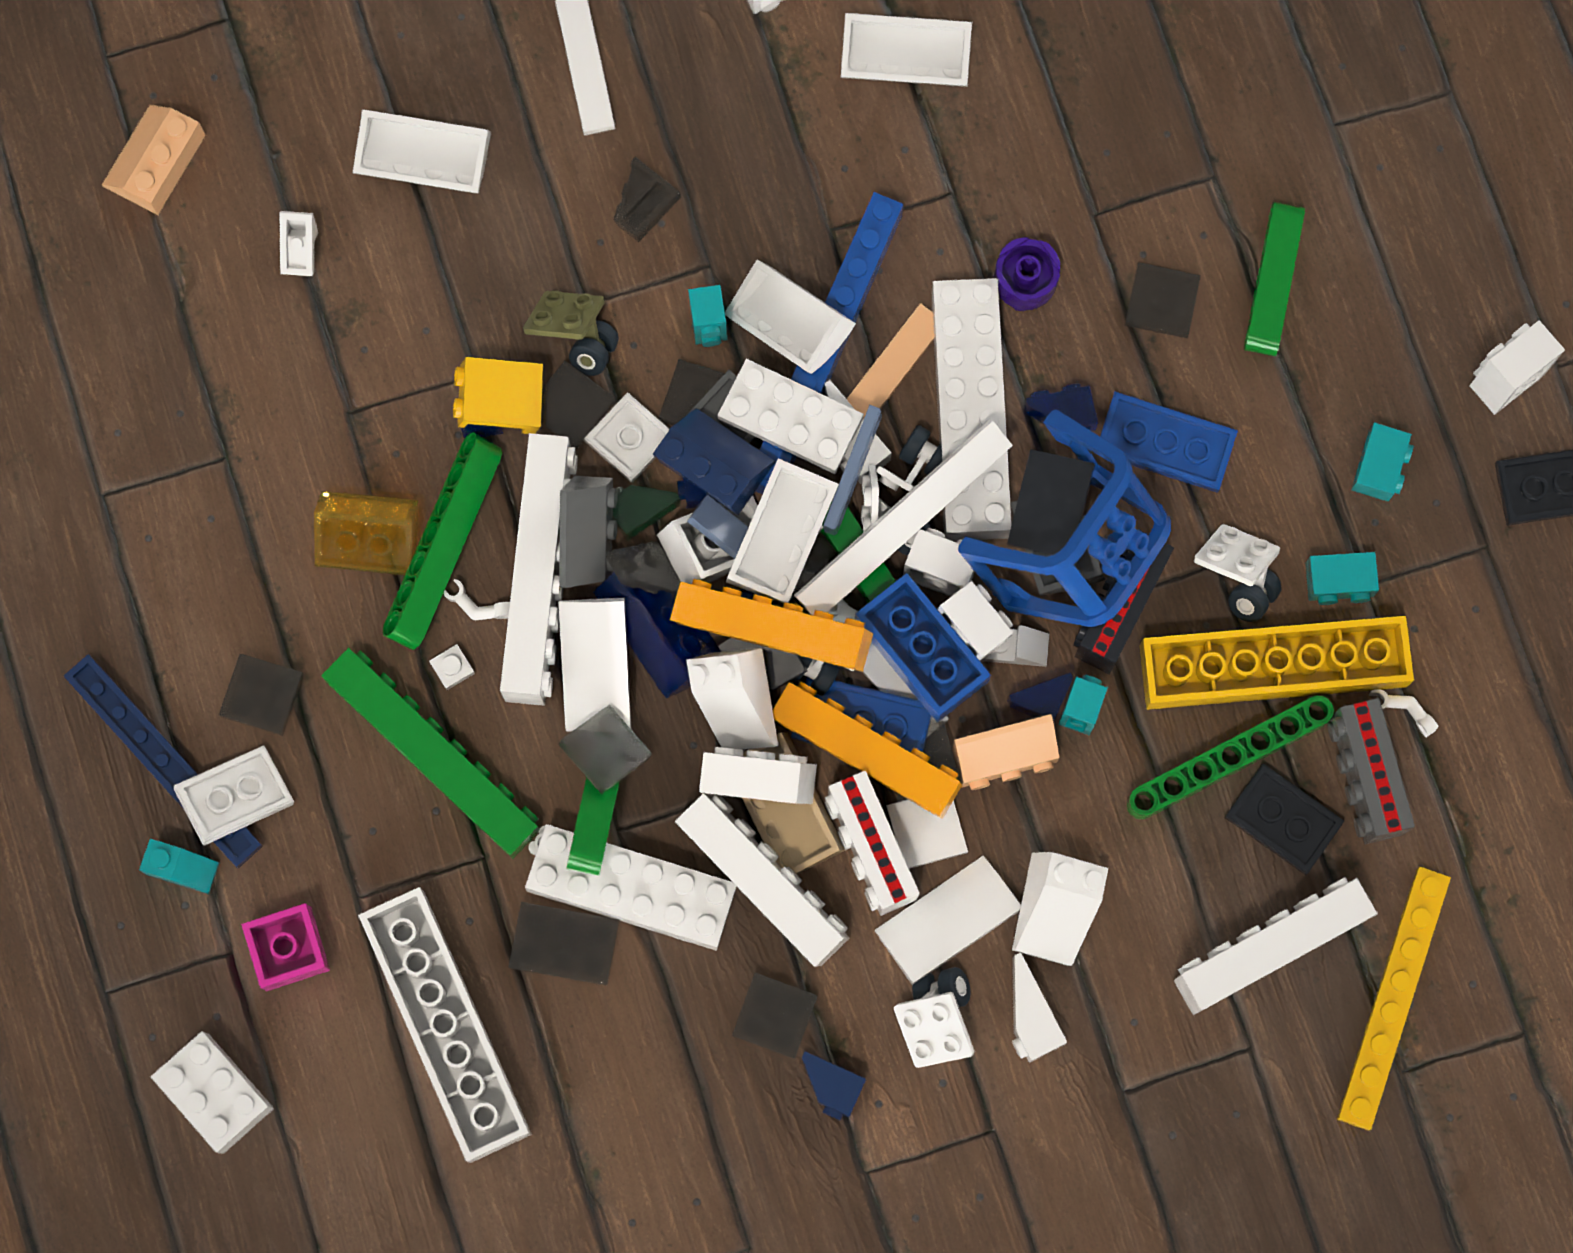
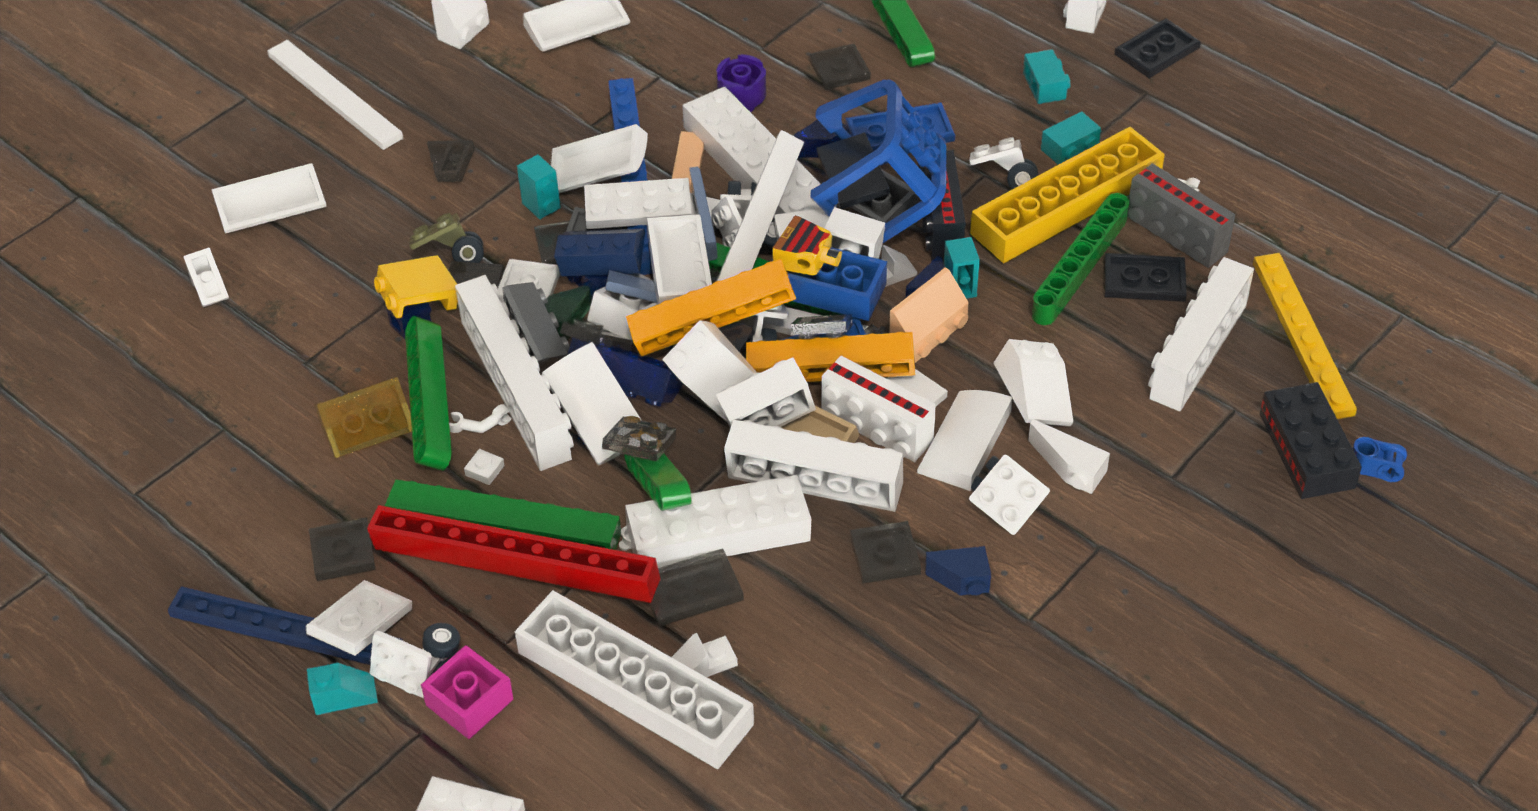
camera: 30 degrees left, 30 degrees down
(155, 157) = (65, 283): light nougat slope -> none
(283, 884) = (409, 665): none -> white plate
(410, 813) = (515, 553): none -> red brick
(528, 1033) = (707, 657): none -> white slope
(878, 708) = (832, 325): none -> clear smoke plate
(908, 615) = (805, 247): none -> torso
(1288, 1142) = (1310, 440): none -> black brick
(1346, 1210) = (1377, 458): none -> blue piece

